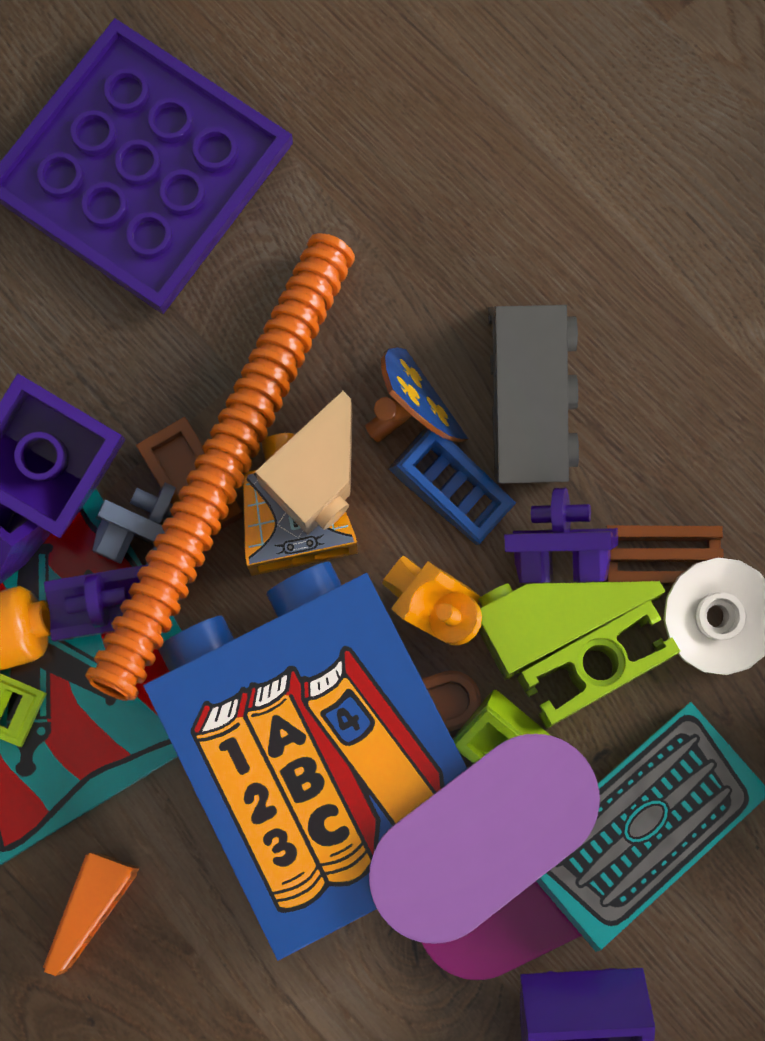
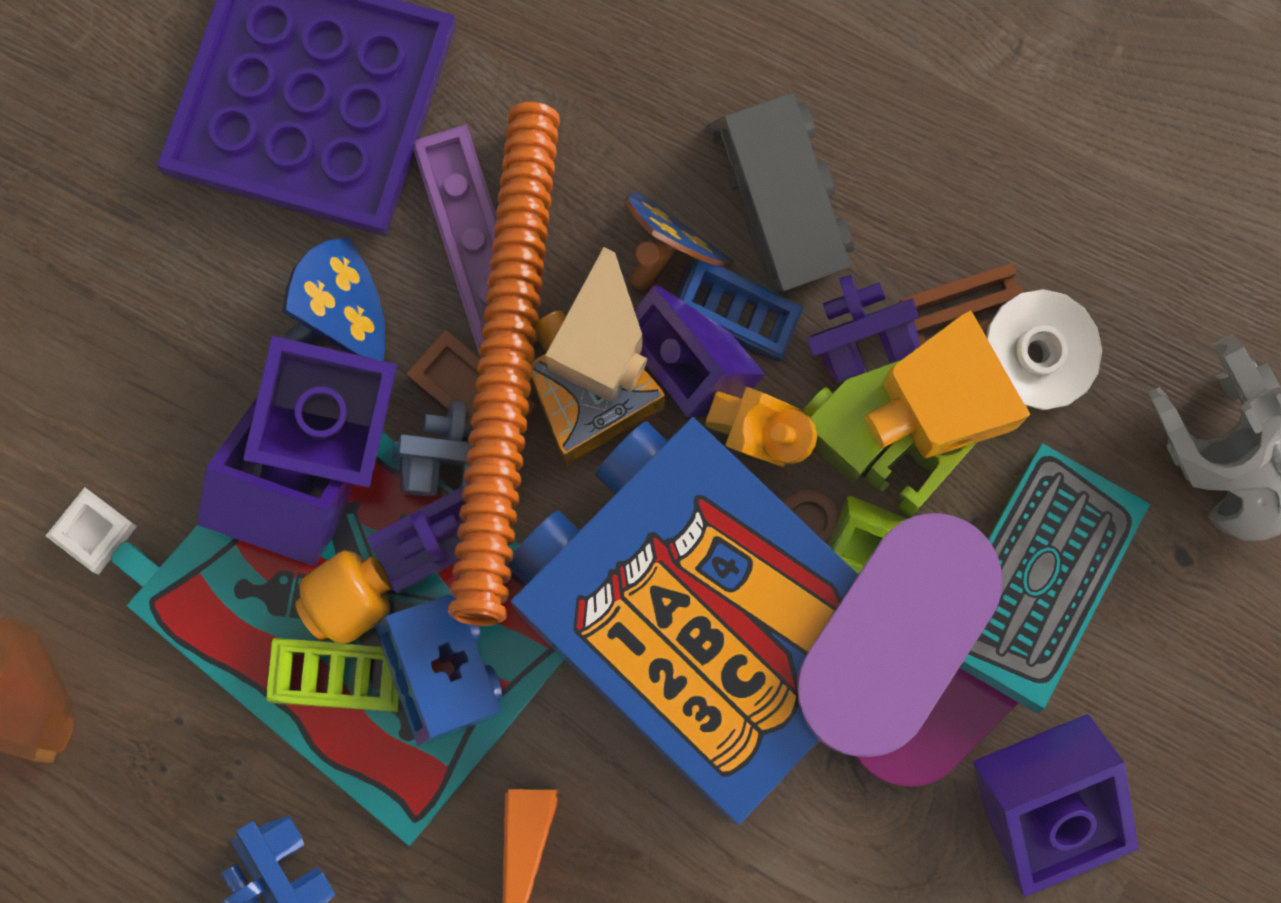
camera: 20 degrees left, 0 degrees up
(50, 751) = (432, 701): none -> blue brick
(95, 359) = (335, 300): none -> blue shield
(238, 313) = (462, 214): none -> medium lavender tile
(395, 512) = (692, 353): none -> dark purple slope
(612, 629) = (948, 393): none -> light orange torso

